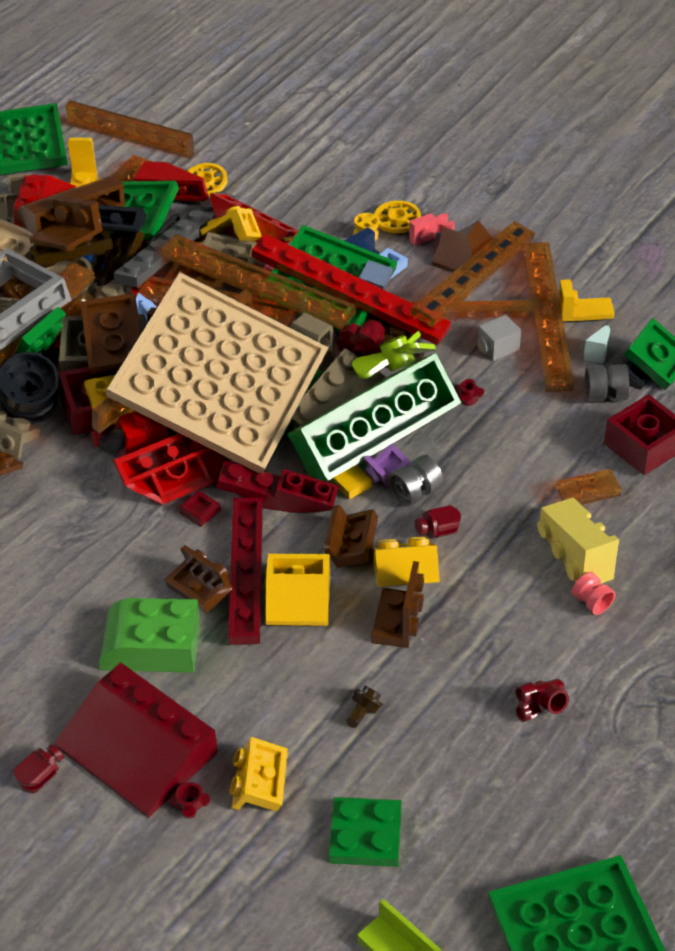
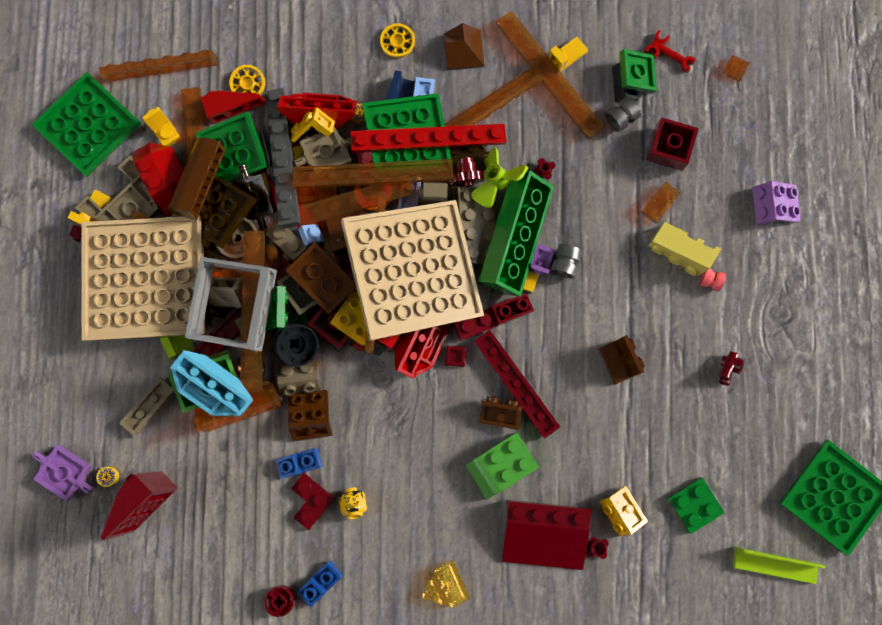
camera: 35 degrees left, 35 degrees up
(38, 768) = (509, 584): dark red arm -> none
(76, 223) = (220, 208): reddish brown bracket -> none
(122, 218) = (241, 176): black slope -> none
(298, 589) = (560, 384): yellow slope -> none
(350, 536) = (558, 324): reddish brown bracket -> none
(366, 220) = (385, 60): yellow wheel -> none
(367, 700) = (642, 427): dark brown plate -> none
(376, 274) = (436, 116): sand blue tile -> none
(394, 561) = (600, 323): yellow slope -> none
(425, 227) = (426, 44): coral plate -> none
(438, 522) = (597, 281): dark red arm -> none
(472, 274) = (489, 72): clear orange tile -> none
(499, 337) = (535, 114): light grey brick -> none
(597, 346) = (598, 84): light aqua slope -> none

